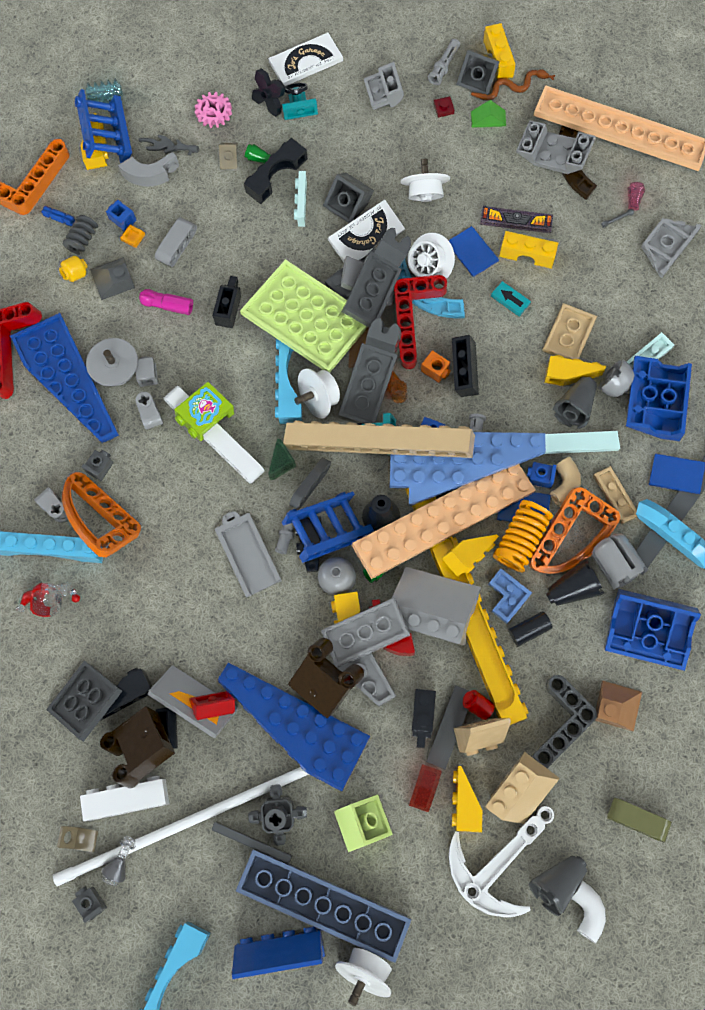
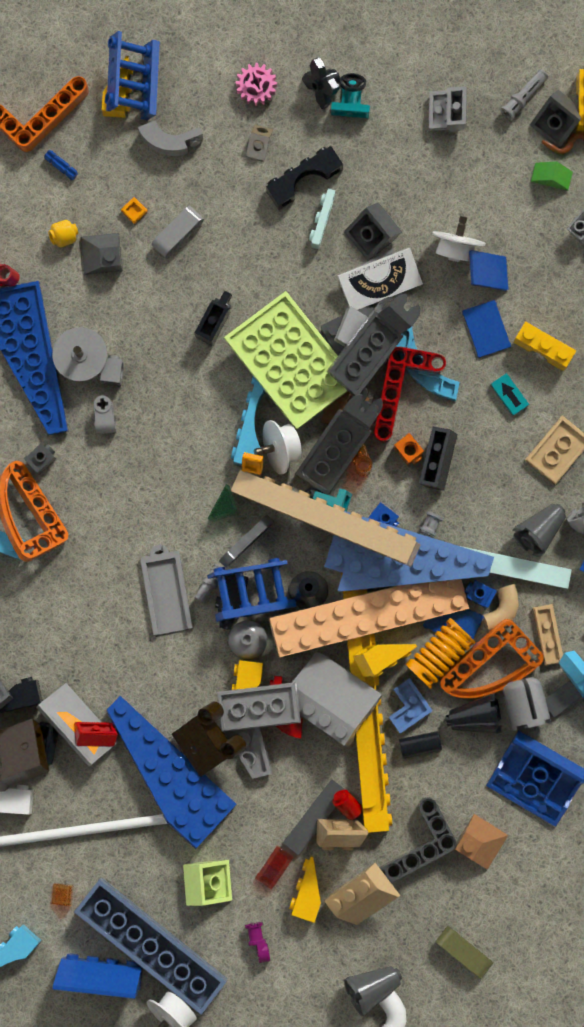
camera: 15 degrees right, 10 degrees up
(79, 233) = (78, 196): dark grey piece -> none
(104, 91) = (143, 29): clear light blue piece -> none
(121, 215) = (130, 191): blue brick -> none
(166, 301) = (150, 297): dark pink piece -> none
(167, 144) = (195, 109): dark grey piece -> none
(203, 410) = (159, 433): panel -> none
(220, 878) = (62, 894): none -> clear orange slope
(222, 443) = (164, 458): white beam -> none
(251, 842) = (100, 871): dark grey tile -> none
(256, 154) = (290, 152): green cone -> none
(284, 808) = (136, 849): dark grey piece -> none
(296, 412) = (252, 463): none -> light orange tile
(305, 59) = (373, 47): white tile -> none
(423, 715) = (291, 800): black hinge -> none
(427, 866) = (256, 938): none -> magenta connector
(431, 256) = (438, 329): white piece -> none
(444, 106) = (508, 149): dark red plate -> none
(459, 200) = (488, 270): none -> blue piece
(494, 868) = (314, 958): white piece -> none
(516, 219) = (544, 305): tile -> none
(568, 371) = (540, 492): yellow slope -> none

